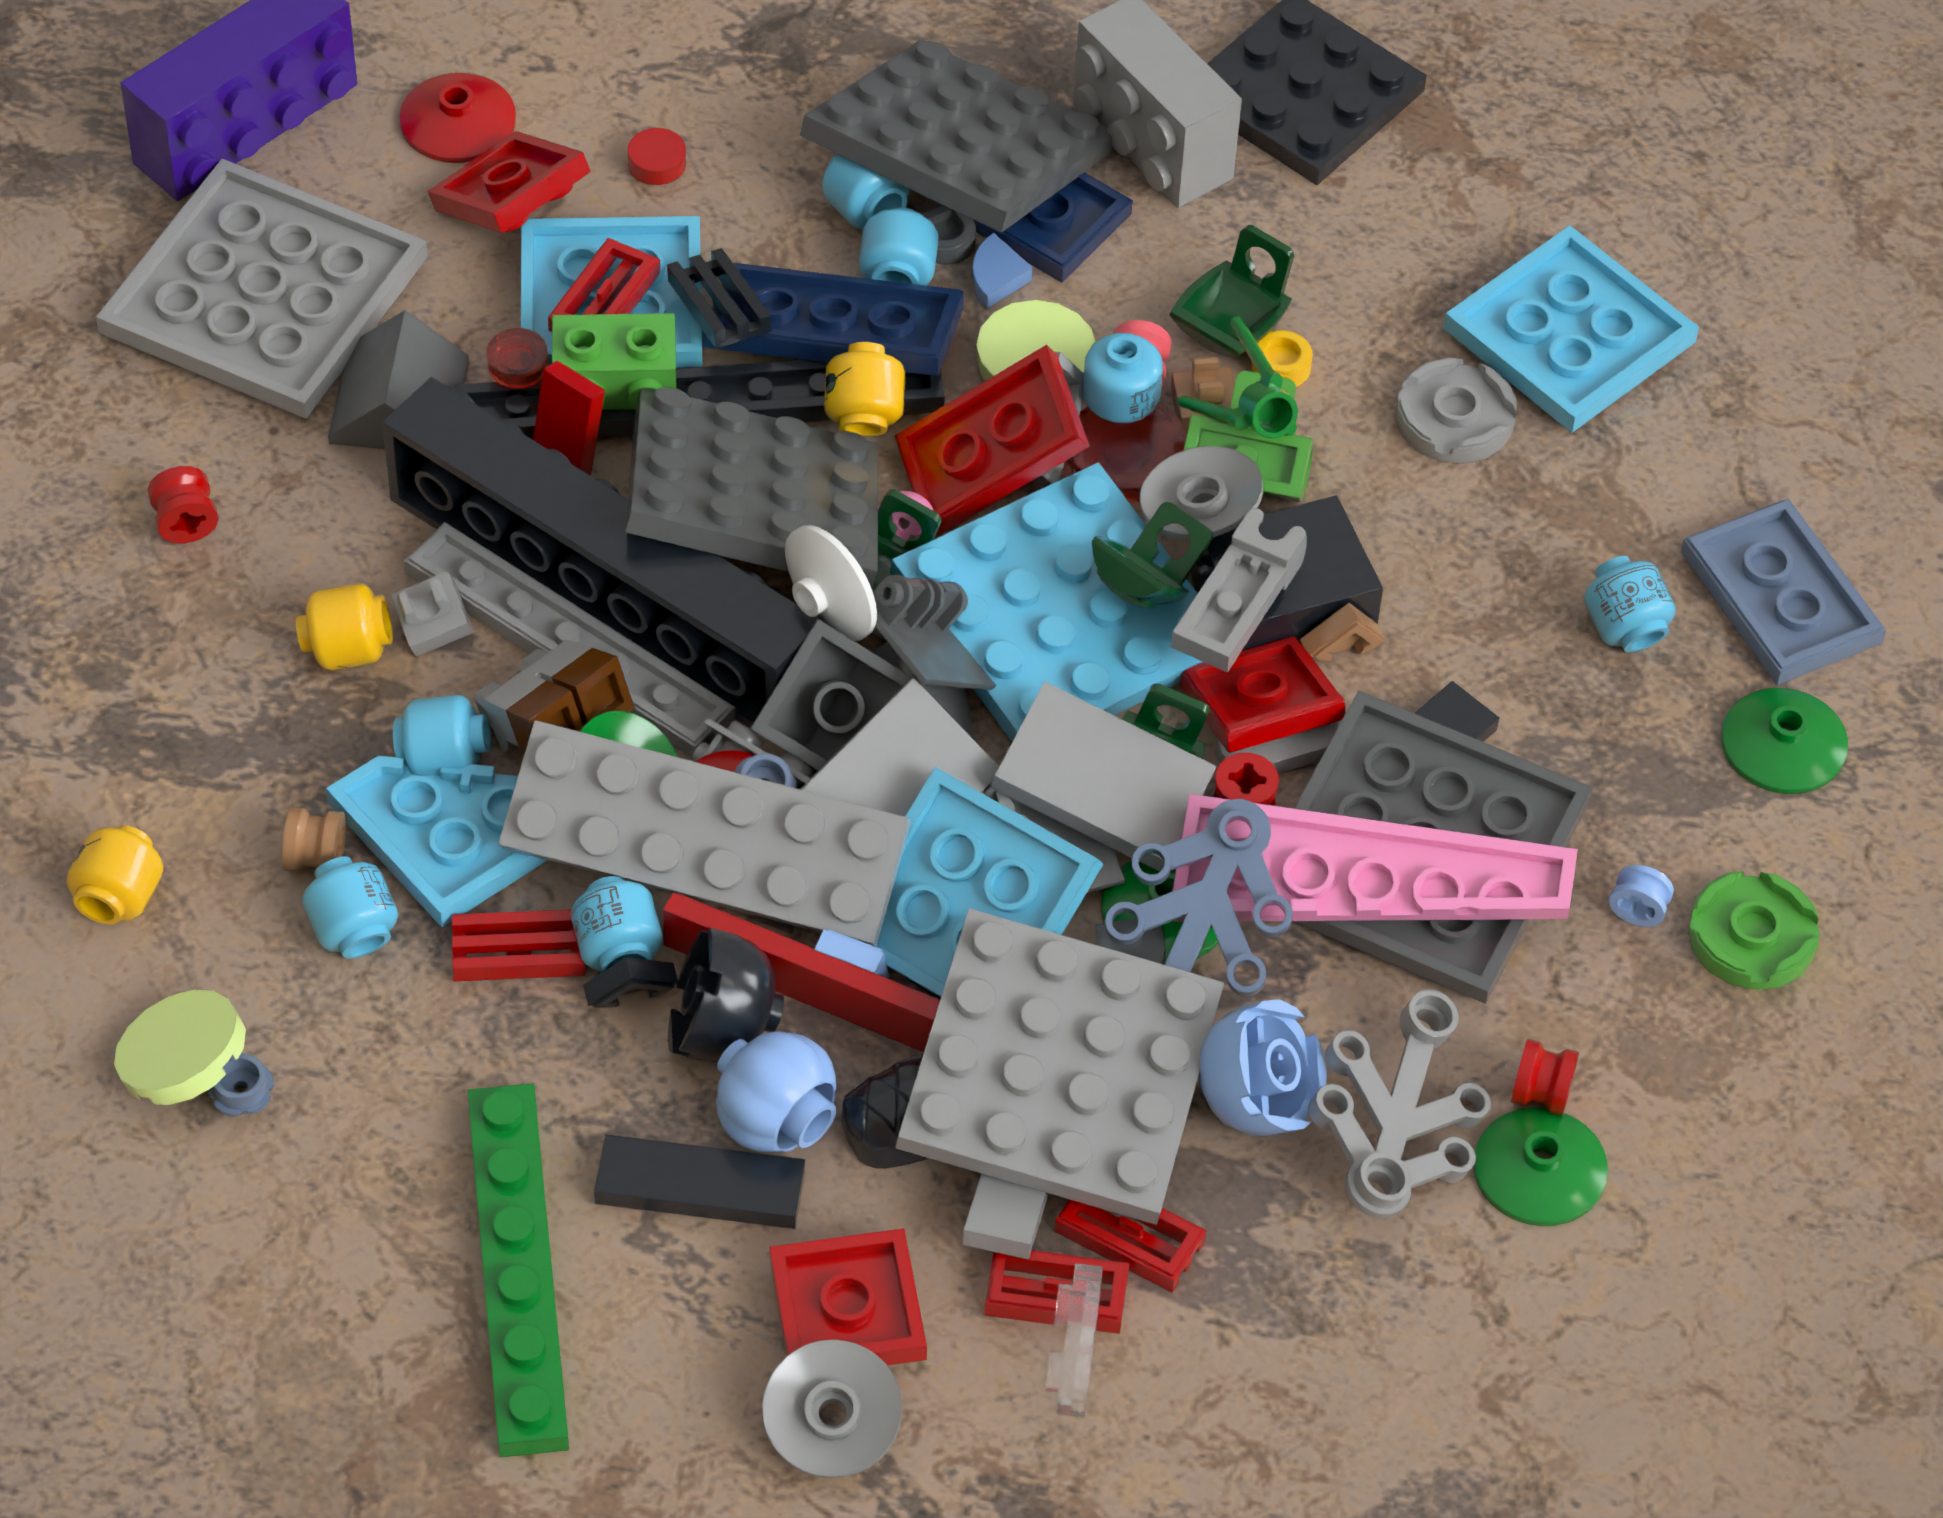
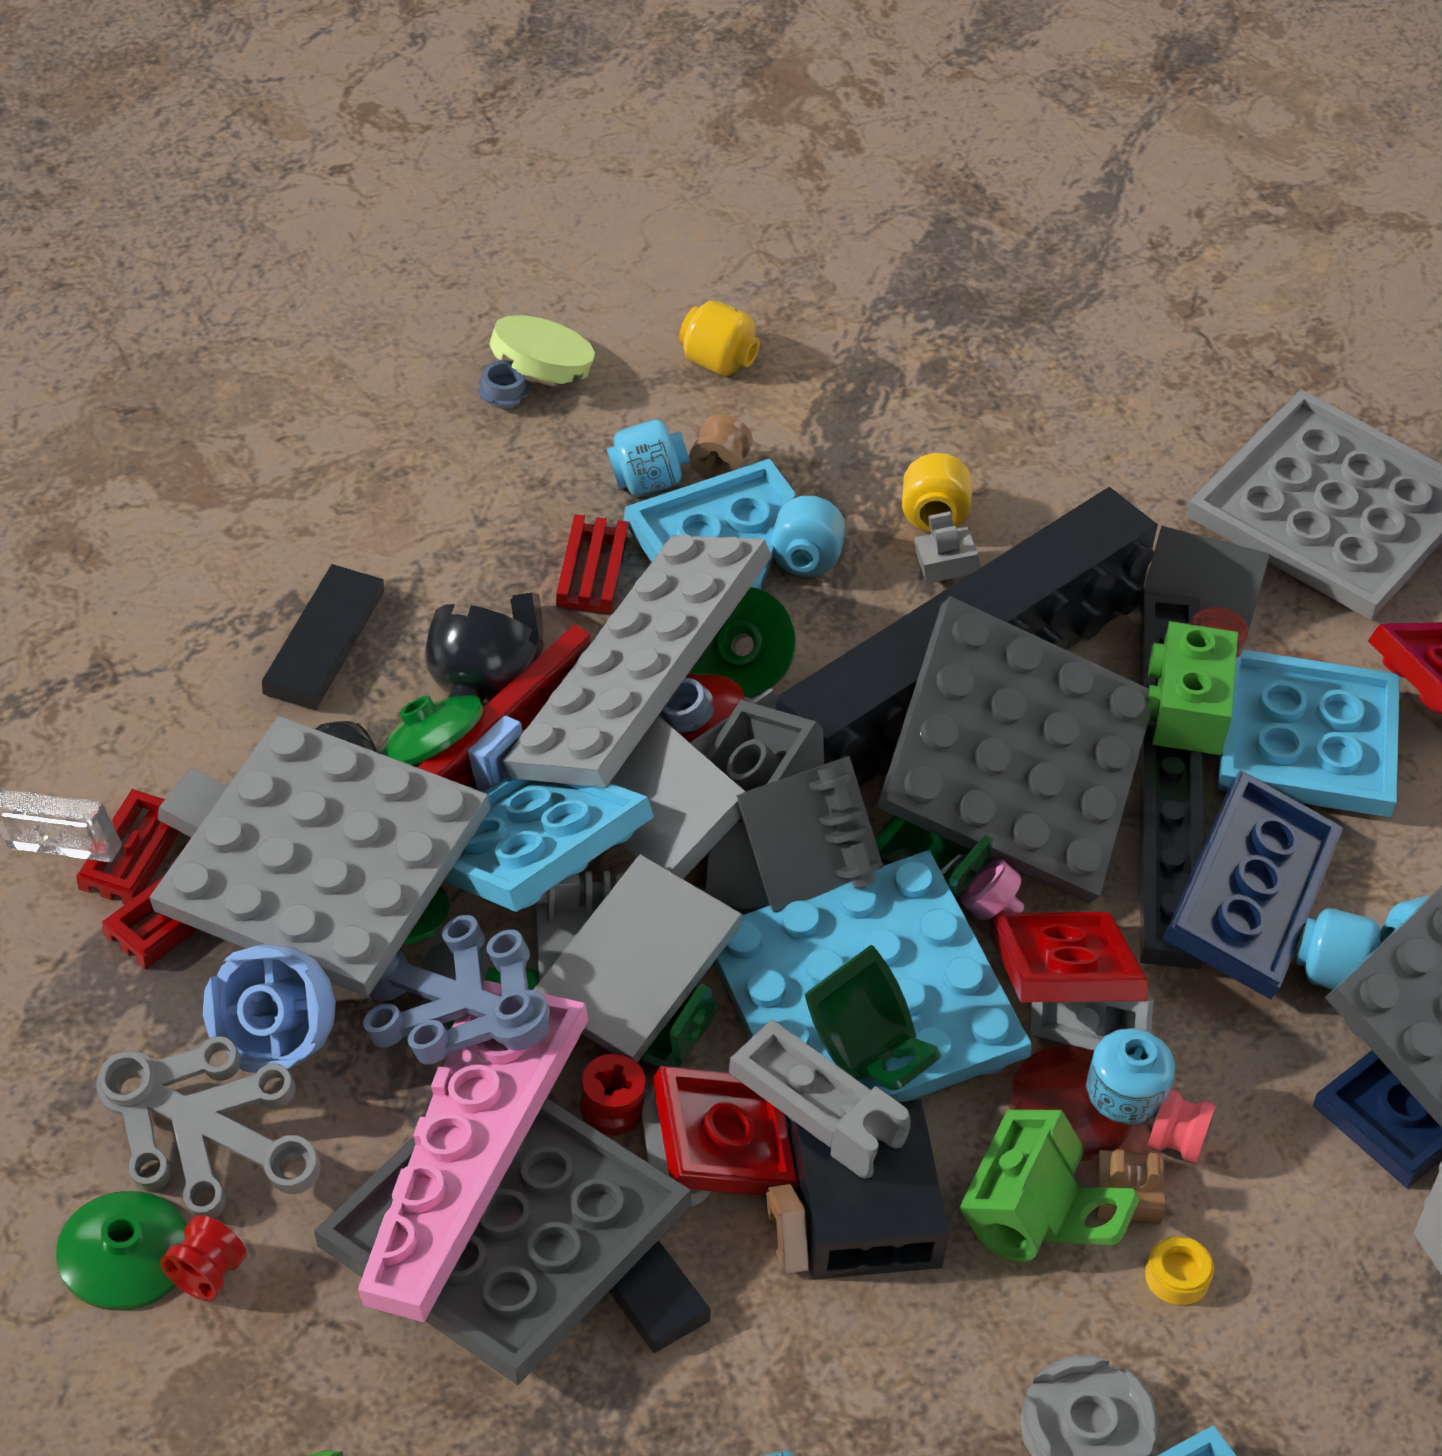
camera: 100 degrees right, 5 degrees down
(182, 504) = (1089, 418): red wheel -> none
(517, 1271) = (285, 517): green plate -> none
(554, 688) = (822, 599): reddish brown hips -> none
(569, 415) = (1131, 638): red tile -> none
(595, 270) = (1287, 713): red tile -> none
(615, 922) = (576, 600): medium azure head -> none
(706, 272) = (1269, 772): black tile -> none
(776, 1092) = (371, 670): light blue plant -> none
(823, 1376) = (65, 662): light grey dish -> none
(830, 582) = (861, 731): white dish -> none
(850, 1292) = (166, 699): red plate -> none
(864, 389) = (1141, 866): yellow head -> none
(864, 1006) = (431, 727): none -> green dish
(998, 271) = (1321, 1041): medium blue tile -> none
(1026, 327) = (1216, 1049): yellowish green tile -> none
(1208, 484) = (965, 1106): light grey dish -> none
(1233, 291) = (1241, 1220): dark green piece -> none
(1261, 404) = (1041, 1152): green plant -> none
(1641, 895) = (392, 1408): light blue bush -> none

